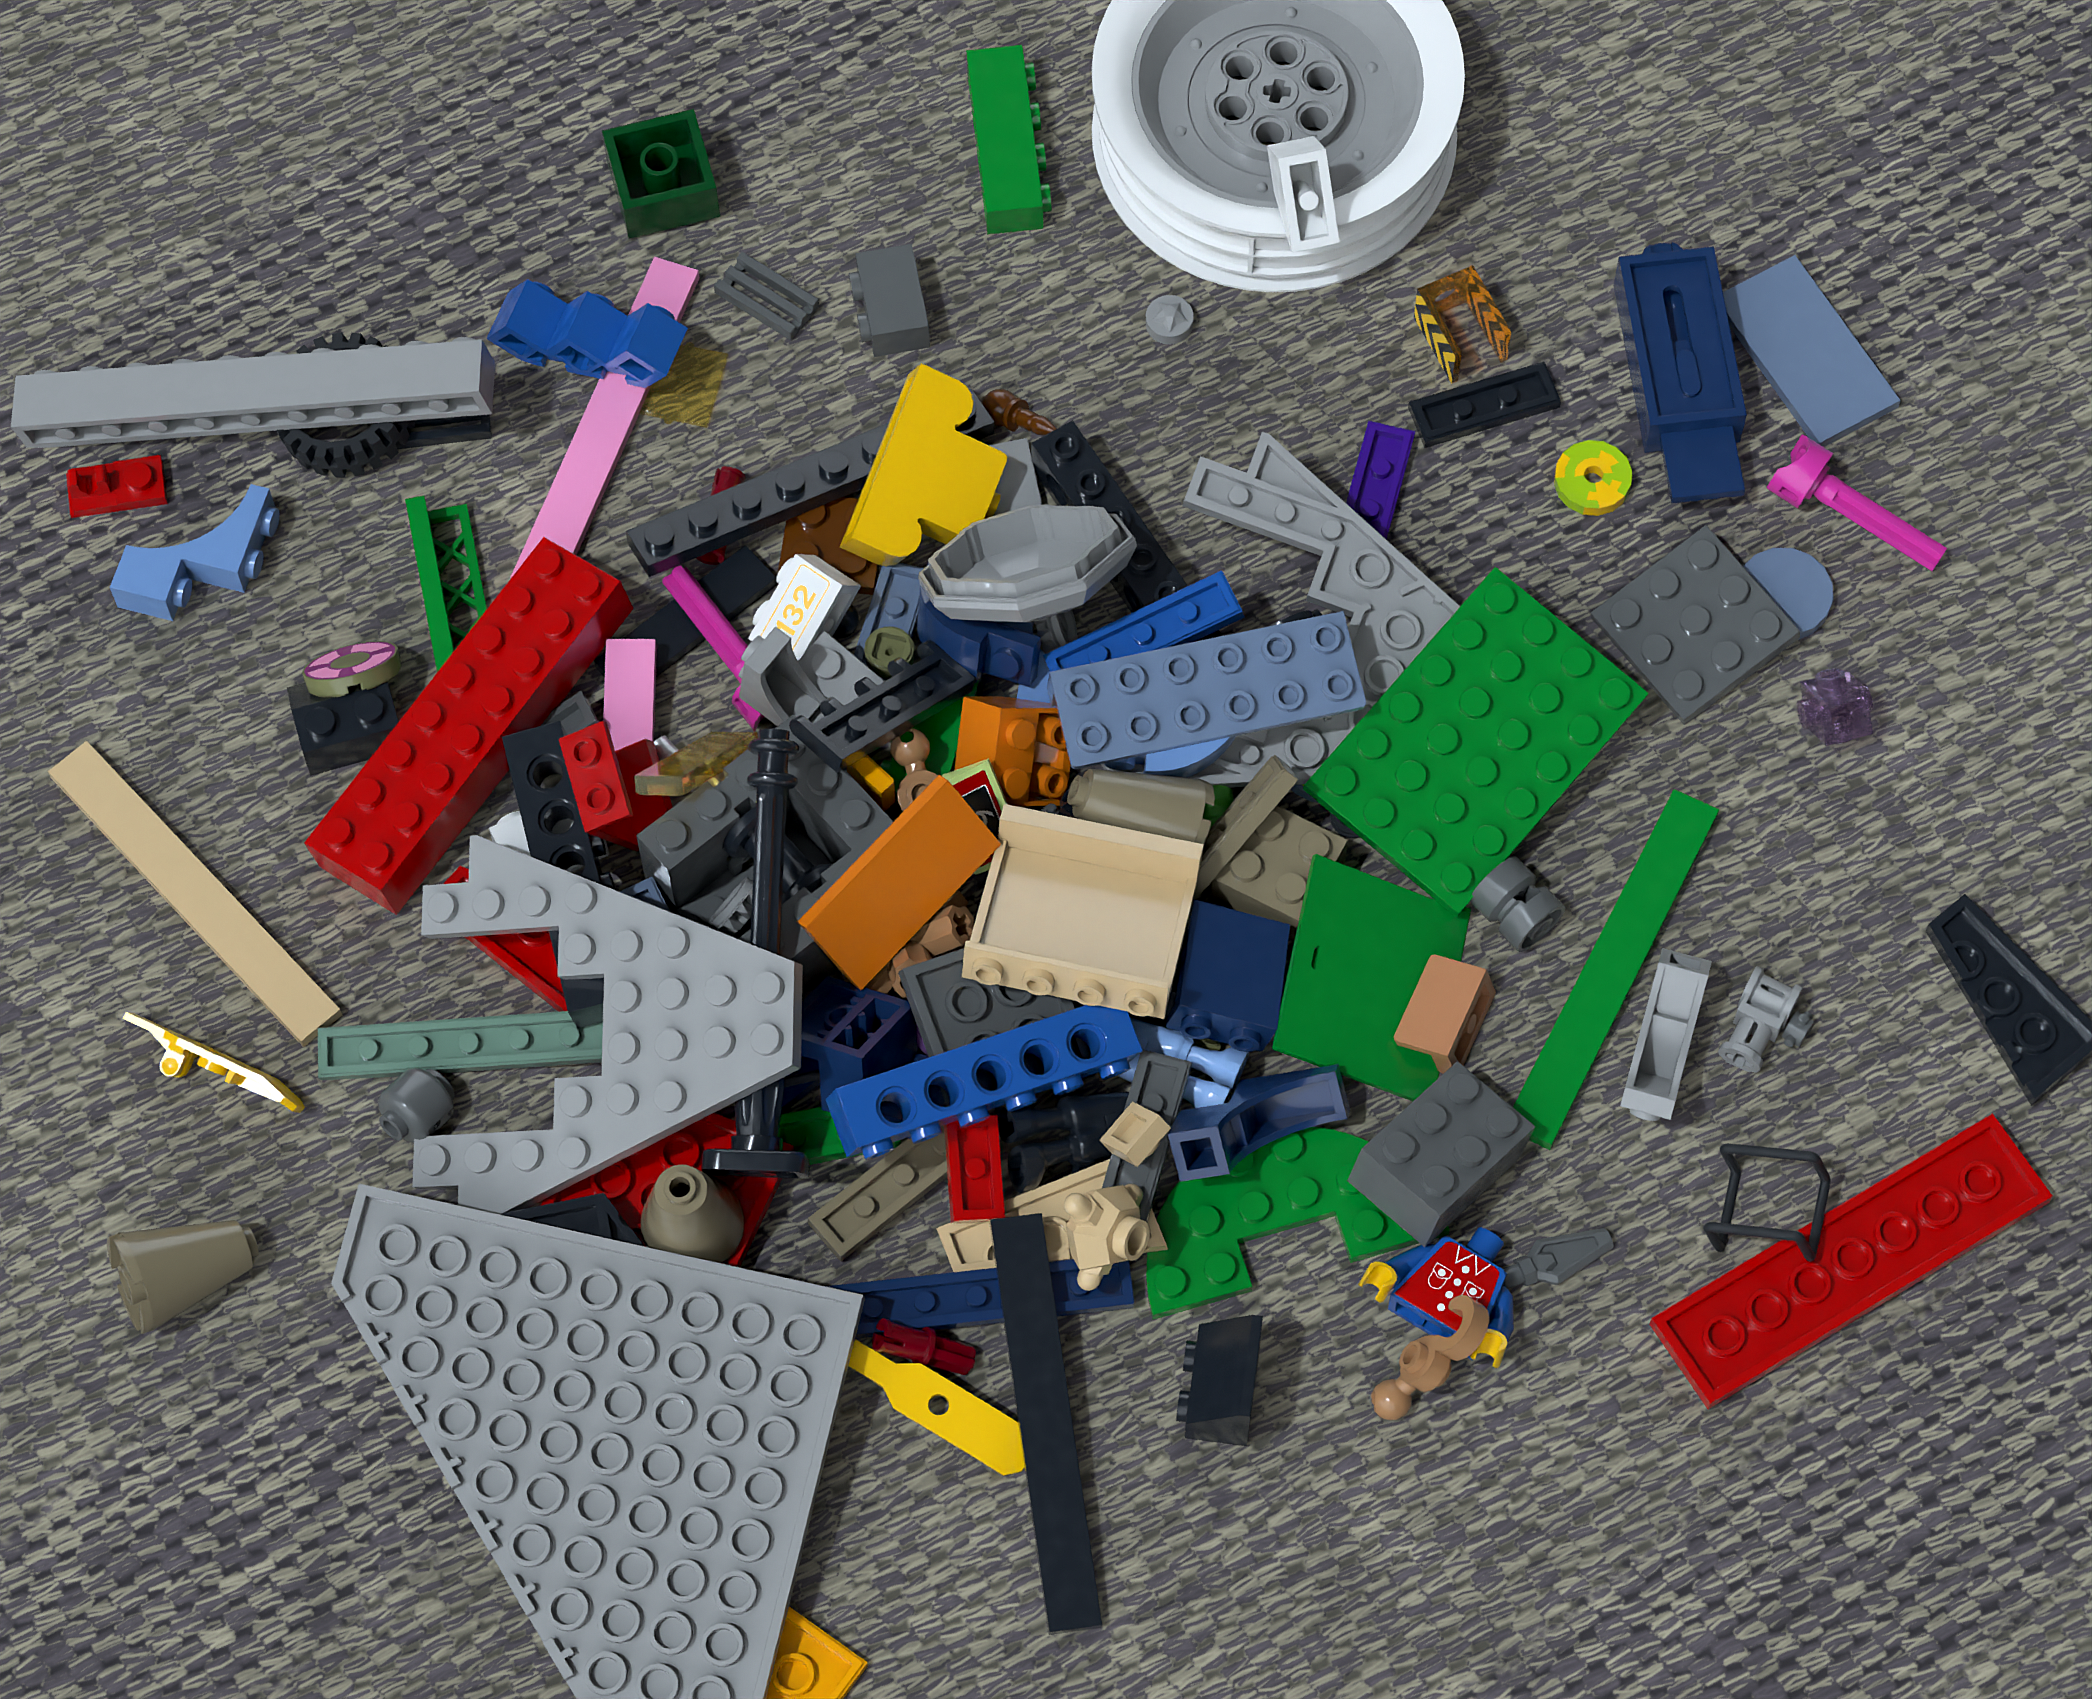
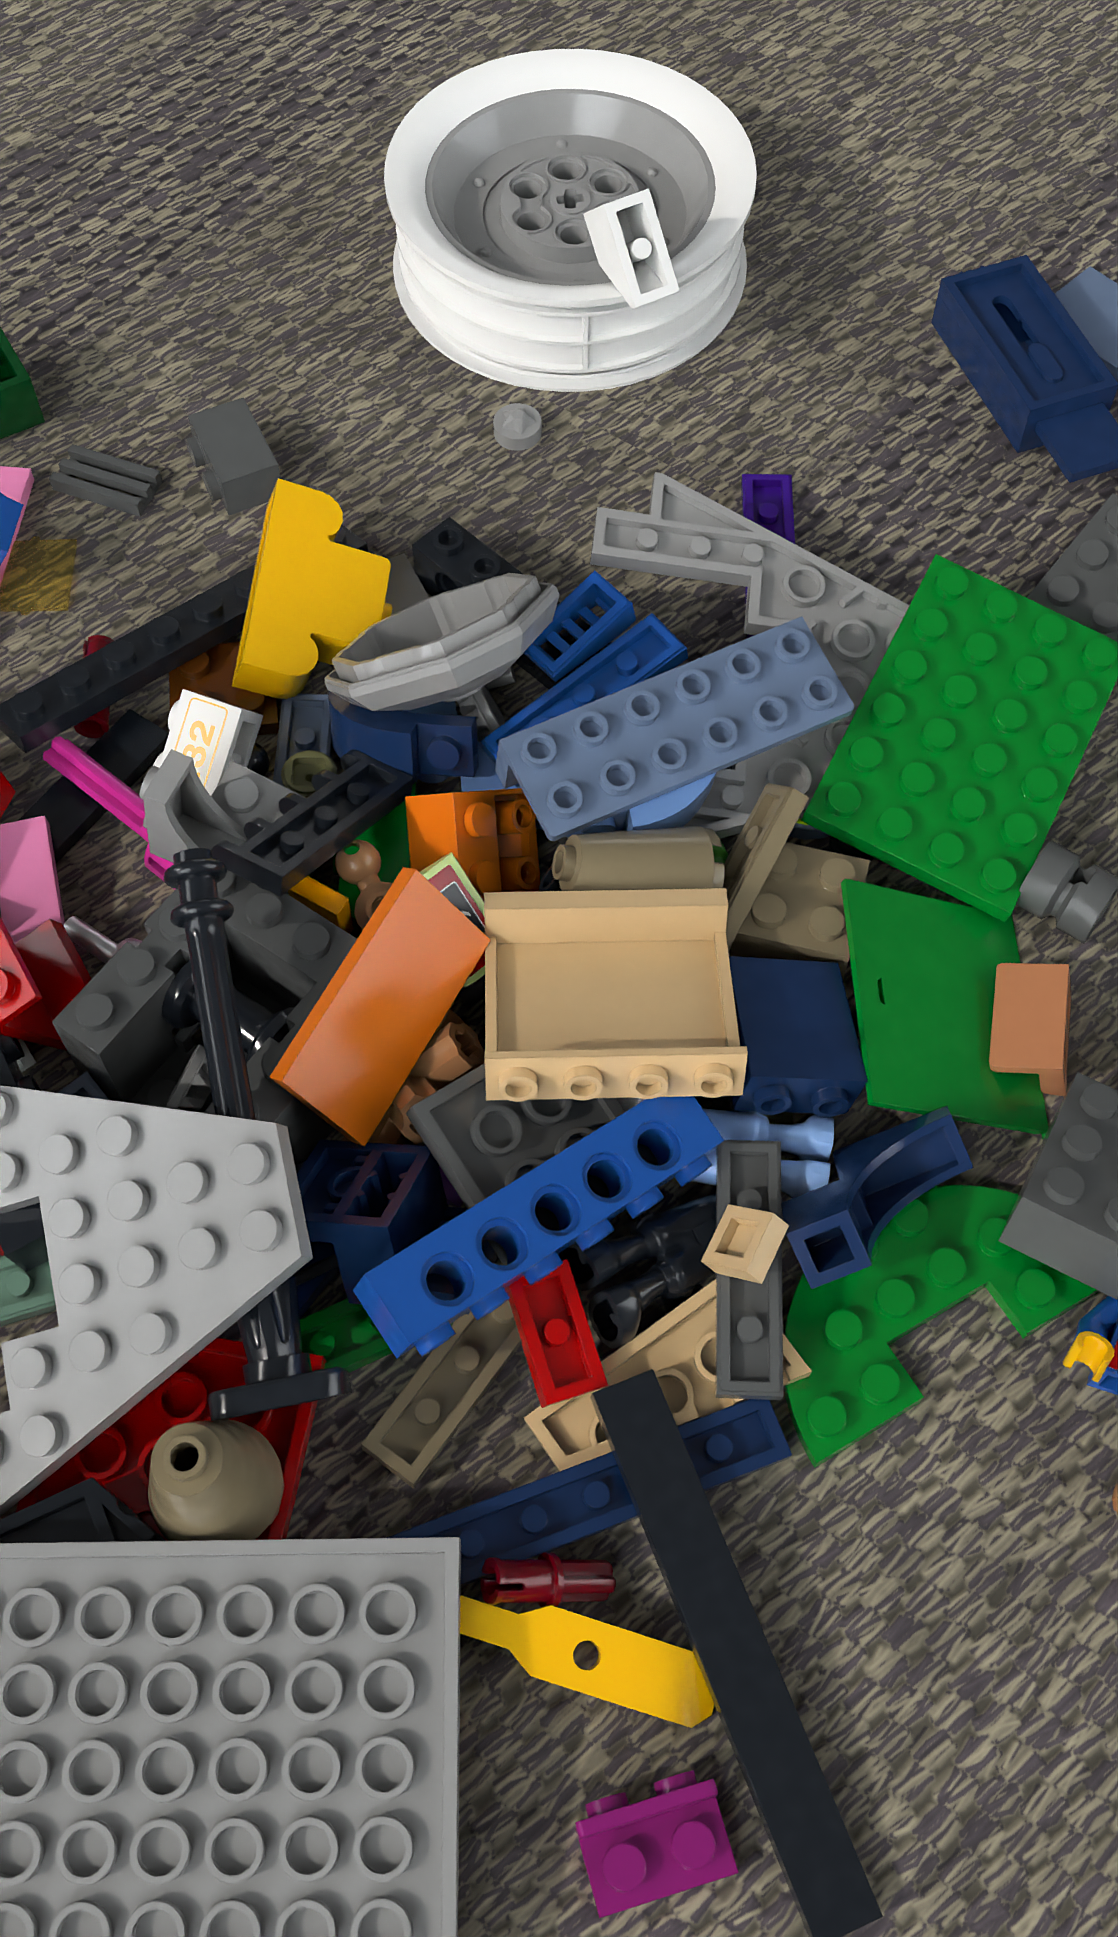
camera: 15 degrees left, 5 degrees down
(693, 764) = (97, 936): clear yellow tile -> none
(954, 1540) = (654, 1844): none -> magenta bracket
(1005, 139) = (317, 304): green brick -> none
(1015, 413) = (385, 533): reddish brown bar -> none
(1105, 1230) = (746, 1376): tan rock -> none
(1178, 574) = (590, 593): none -> blue slope
(1222, 1380) = (938, 1530): black slope -> none
(1468, 290) = (816, 352): clear orange piece -> none
(1484, 404) = (848, 441): black tile -> none
(1595, 458) = (974, 500): lime piece -> none

